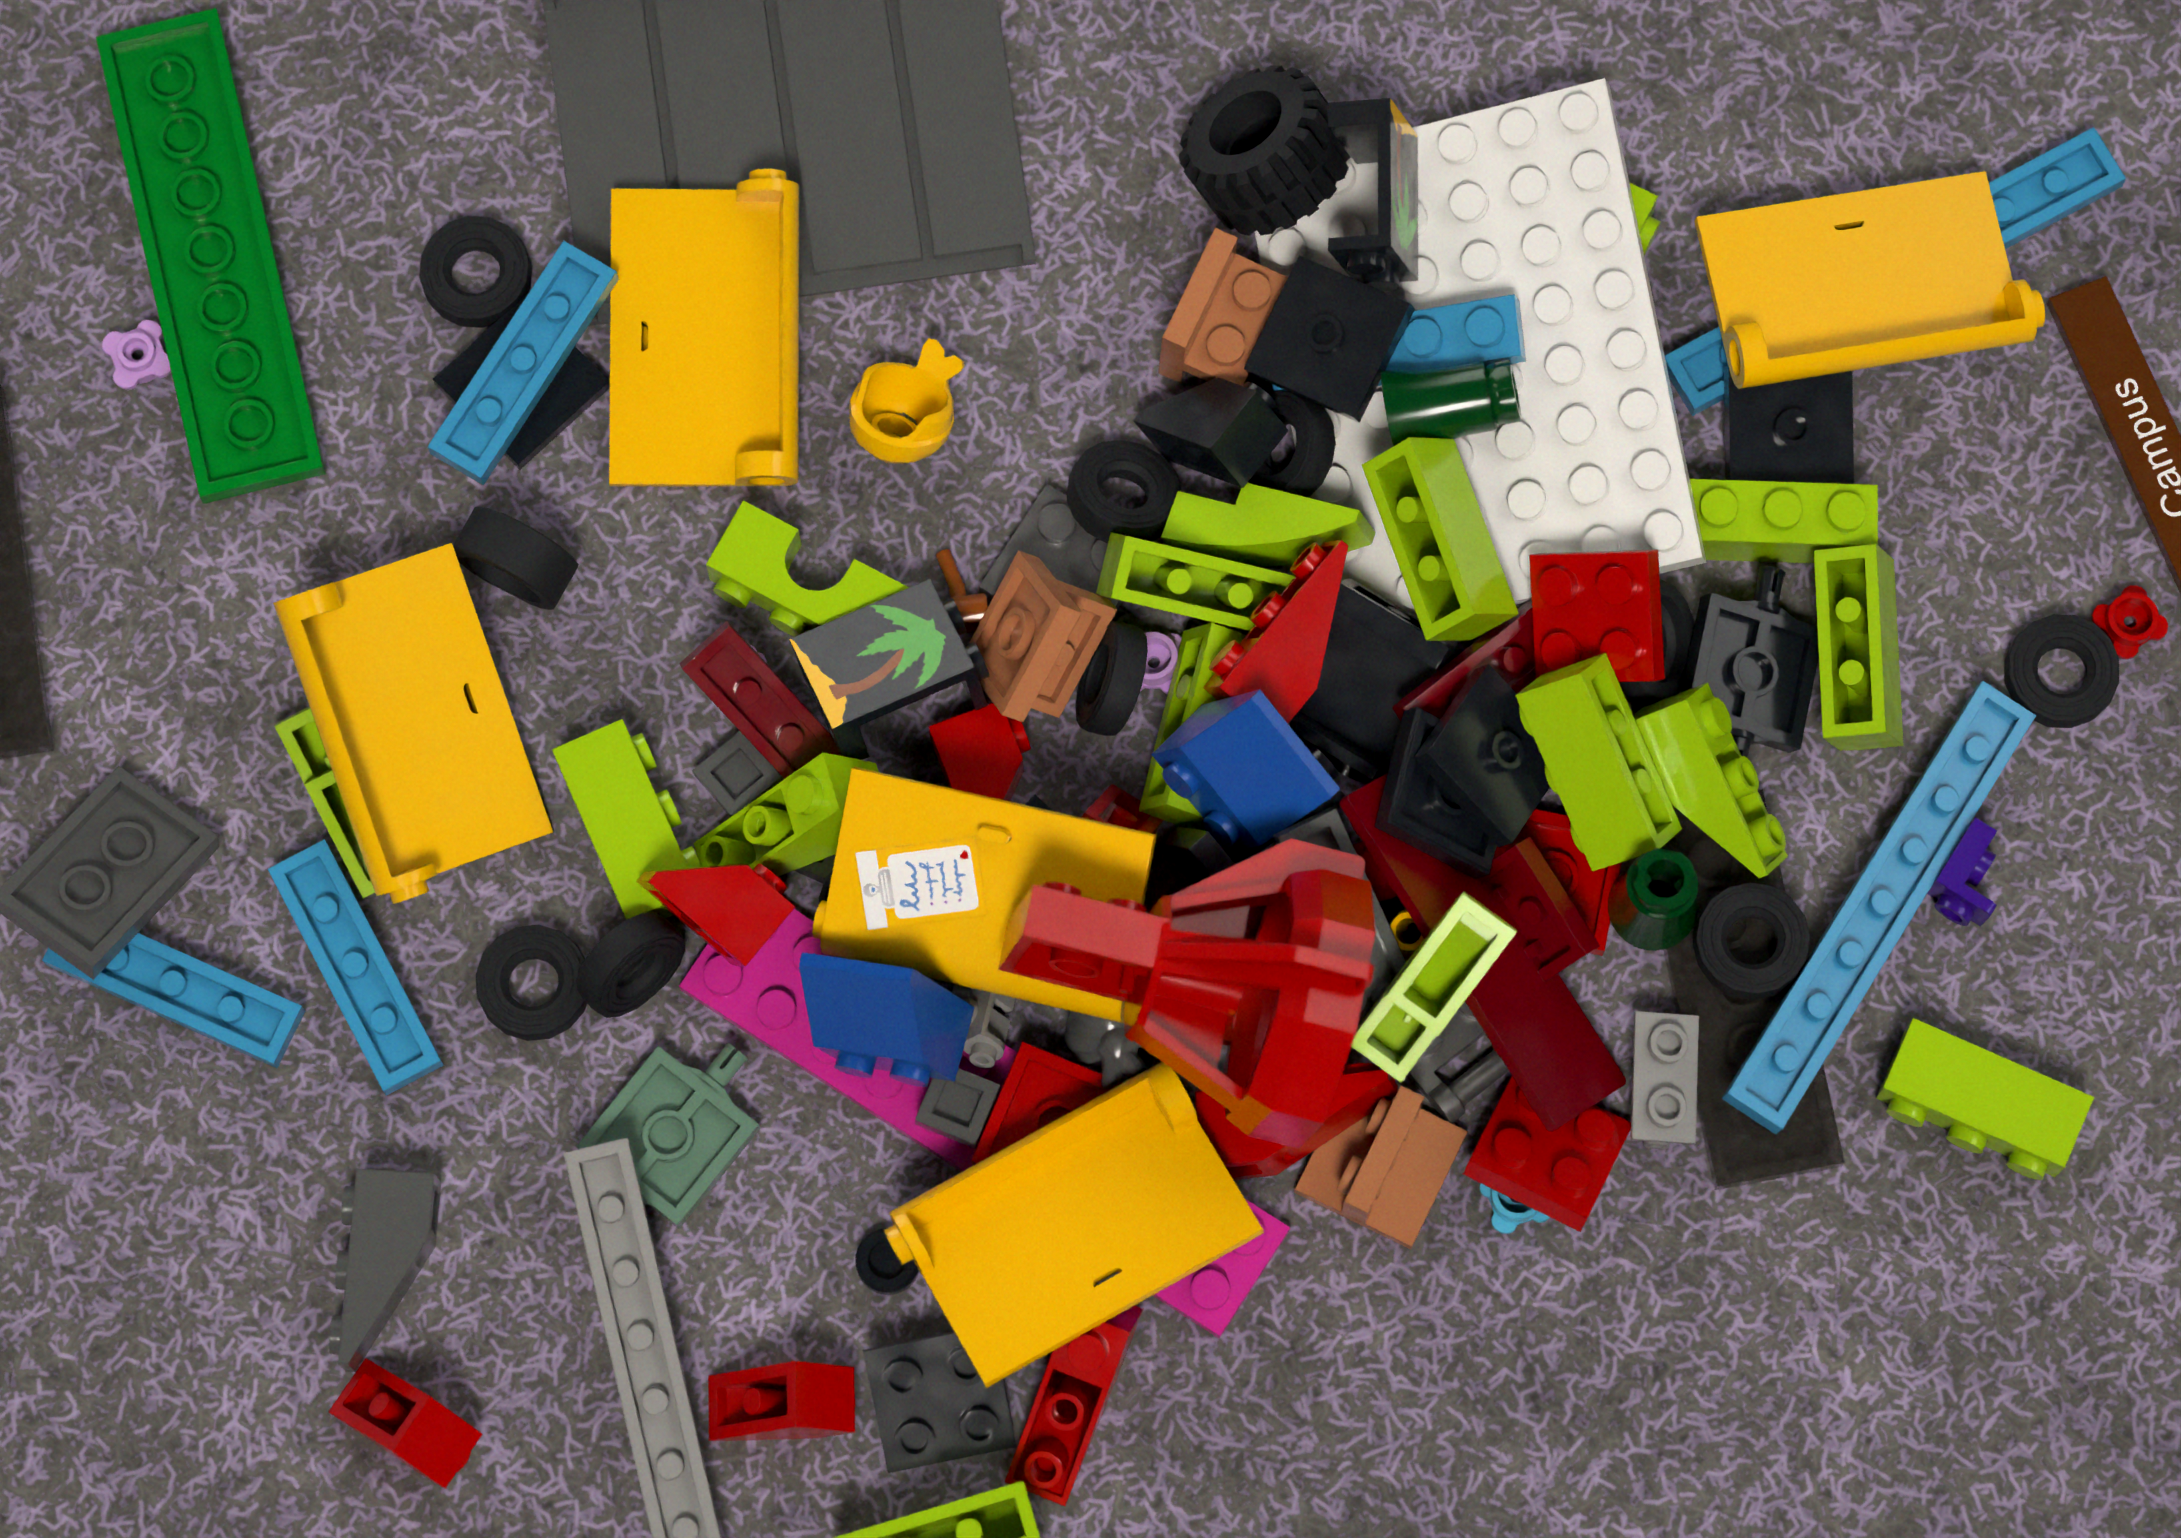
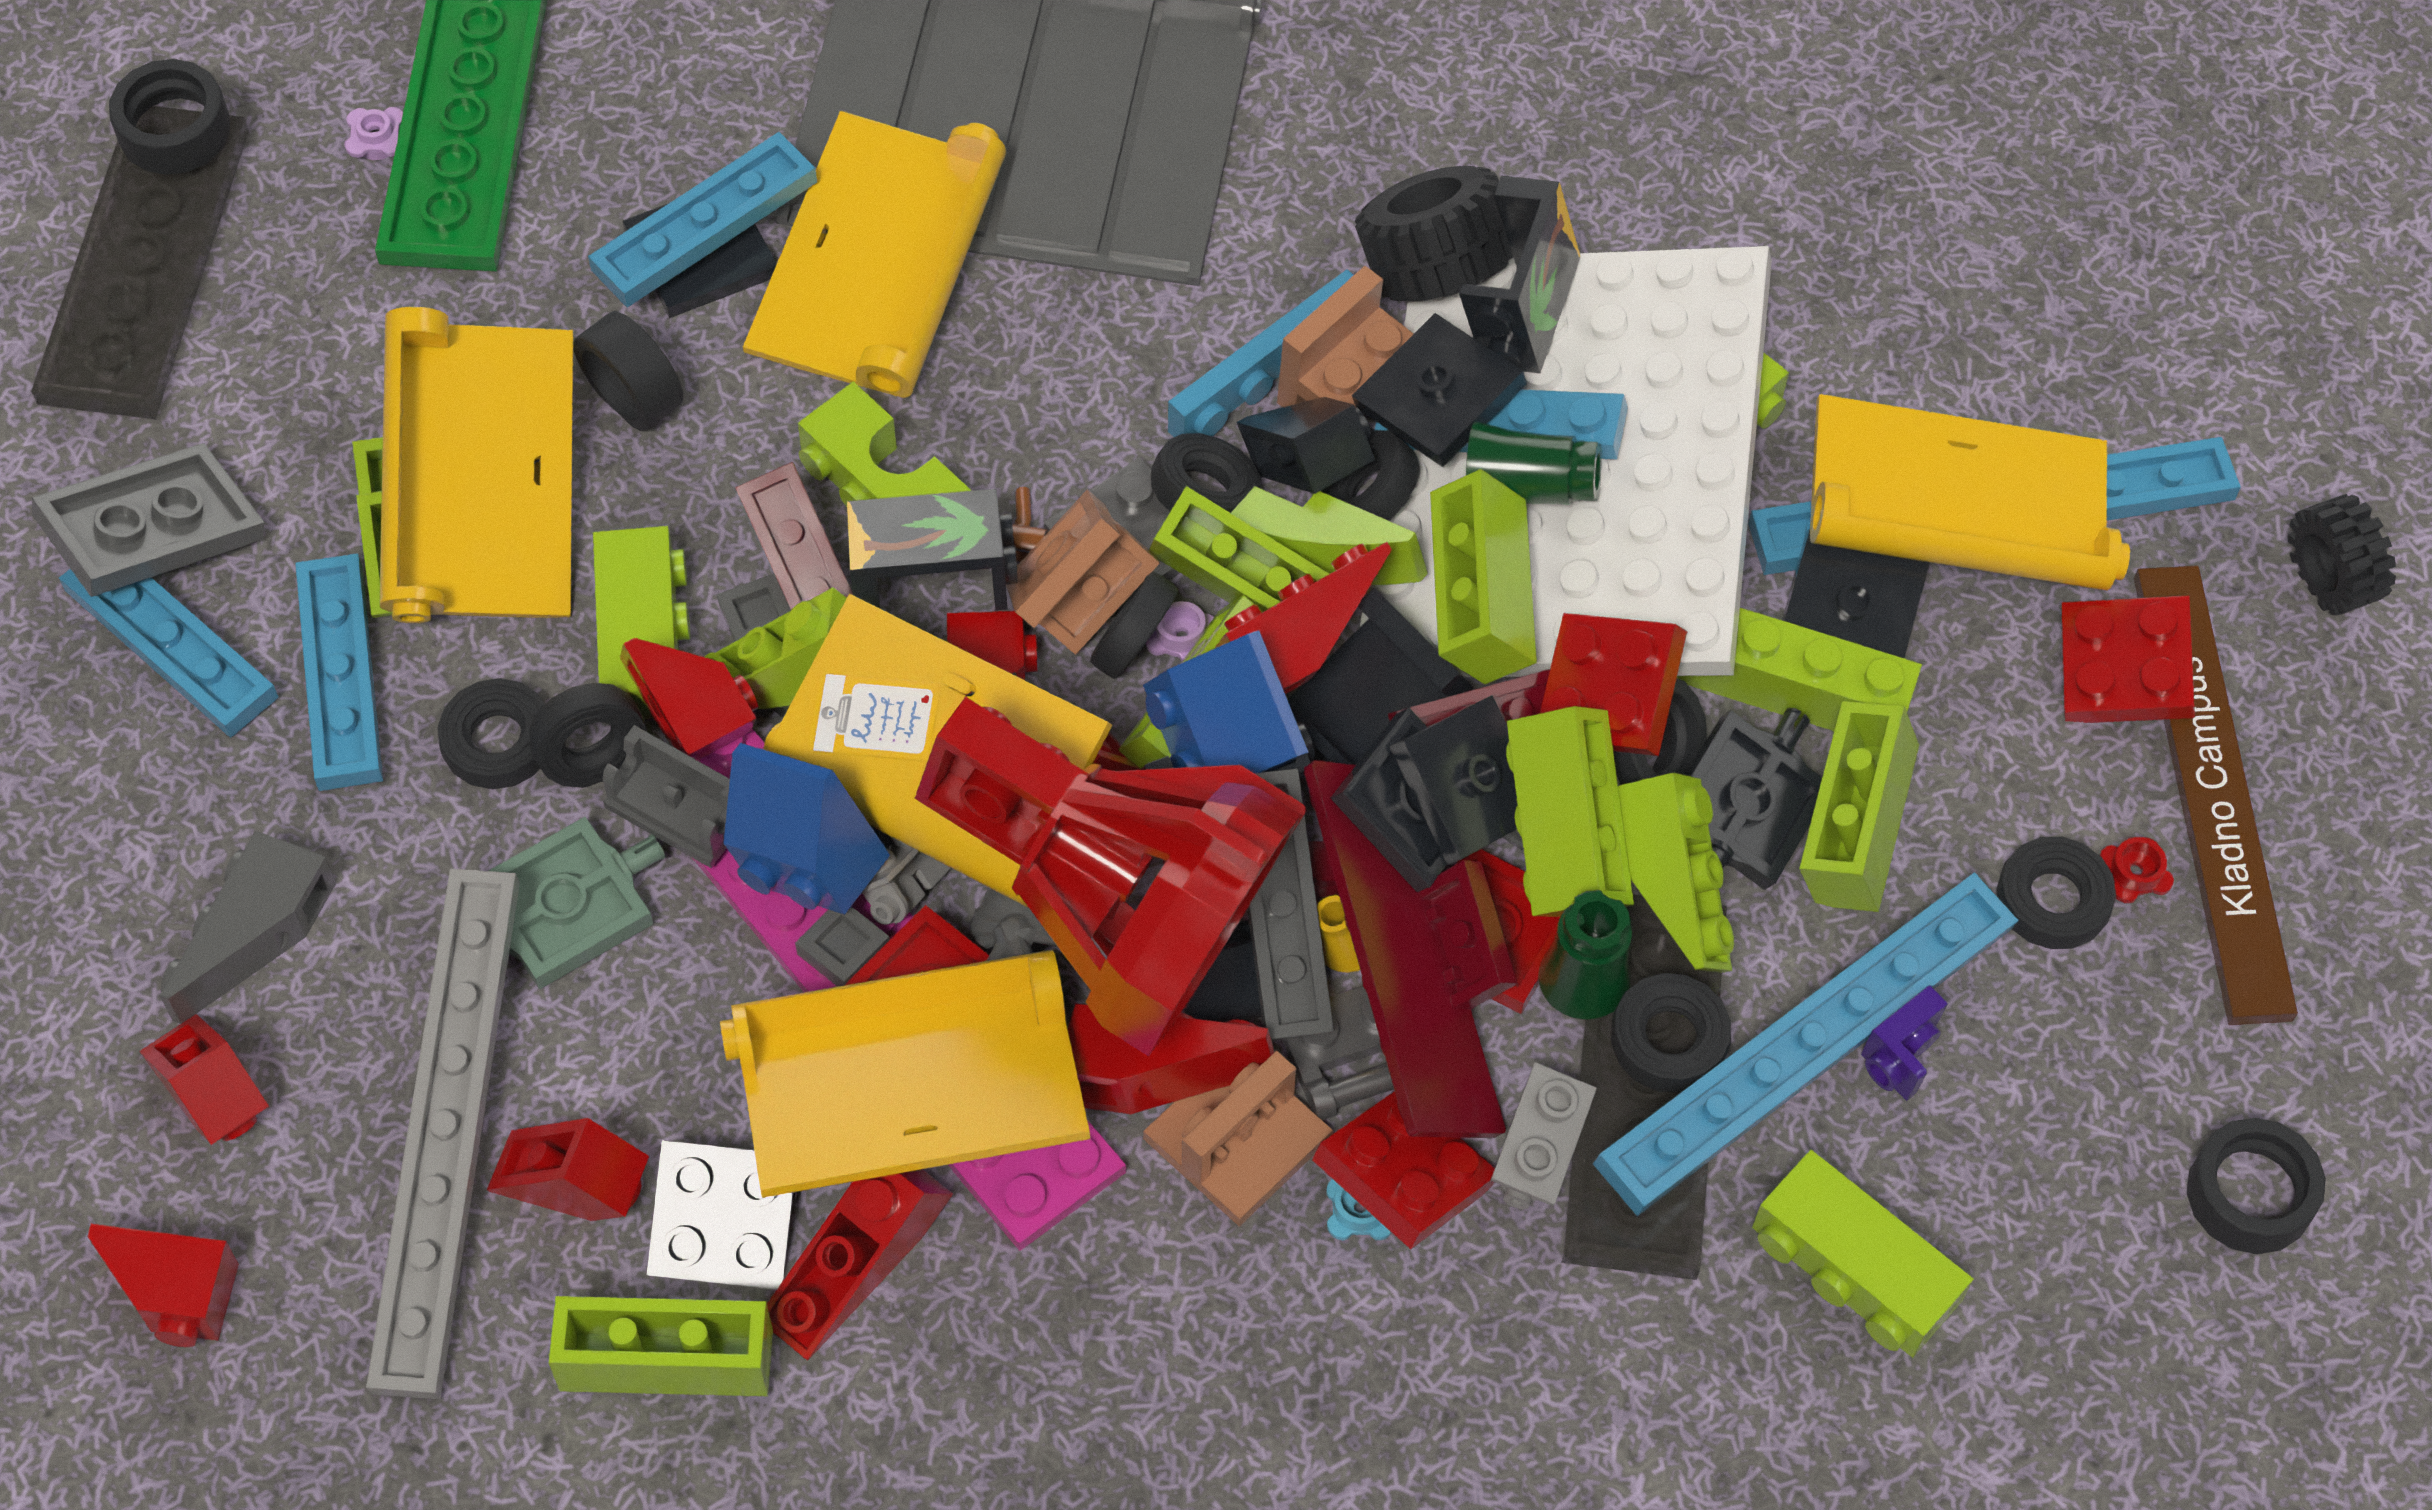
camera: 15 degrees right, 15 degrees down
(462, 237) = (685, 123): black tyre -> none
(740, 1007) = (669, 796): none -> dark grey hinge
(881, 1268) = (718, 1082): black tile -> none
(901, 388) = (1028, 357): yellow hat -> none
(1125, 357) = (1243, 375): none -> dark azure plate
(1432, 986) = (1334, 953): lime slope -> none
(2065, 403) = (2128, 660): none -> red plate

